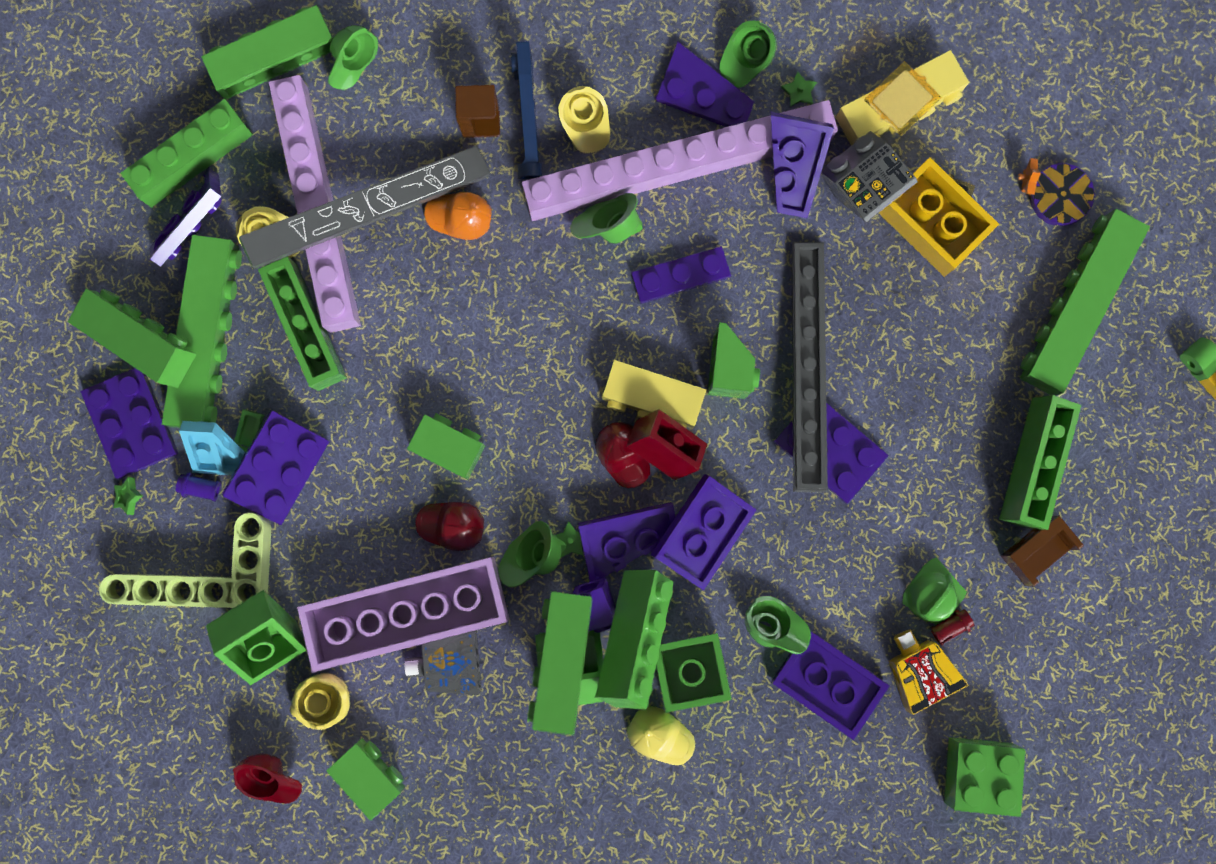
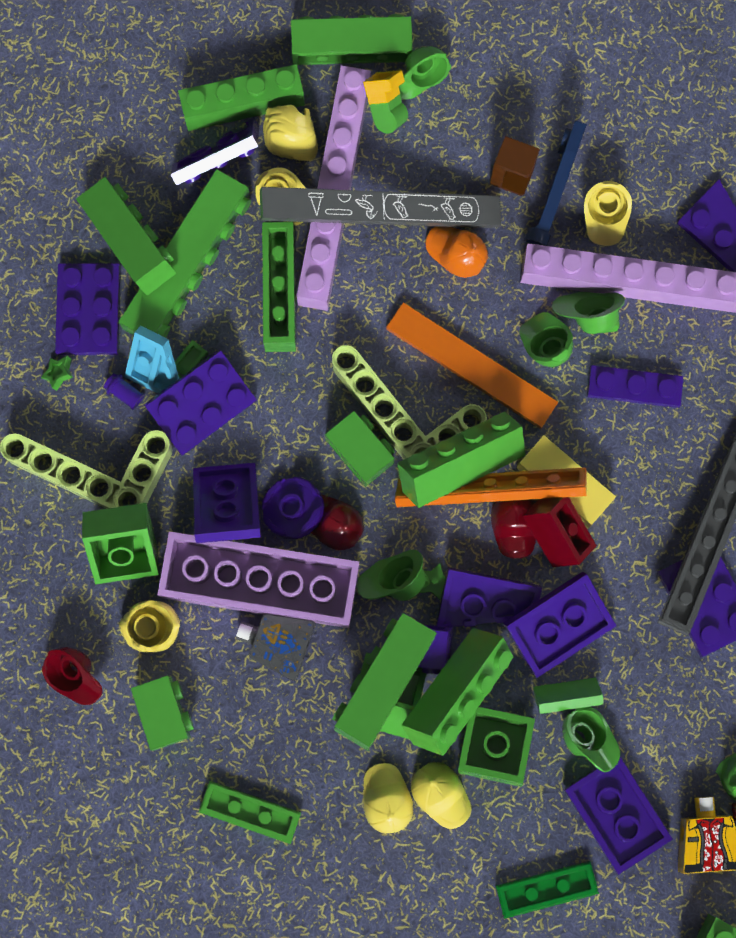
camera: 25 degrees right, 5 degrees down
(249, 169) = (290, 133): none -> light yellow hair
(328, 98) = (385, 100): none -> leg
(340, 555) = (225, 503): none -> dark purple plate
(407, 529) = (292, 508): none -> dark purple tile
(470, 401) = (398, 418): none -> yellowish green beam
(490, 831) = (250, 812): none -> bright green tile
(519, 320) = (472, 365): none -> orange tile
(546, 417) = (461, 459): none -> bright green brick
(579, 266) = (547, 340): none -> bright green piece
(586, 431) = (512, 486): none -> orange tile
(612, 762) = (386, 799): none -> light yellow piece
(731, 366) = (648, 485): bright green slope -> none
(739, 594) = (568, 695): none -> bright green tile
(793, 781) = (547, 889): none -> green tile

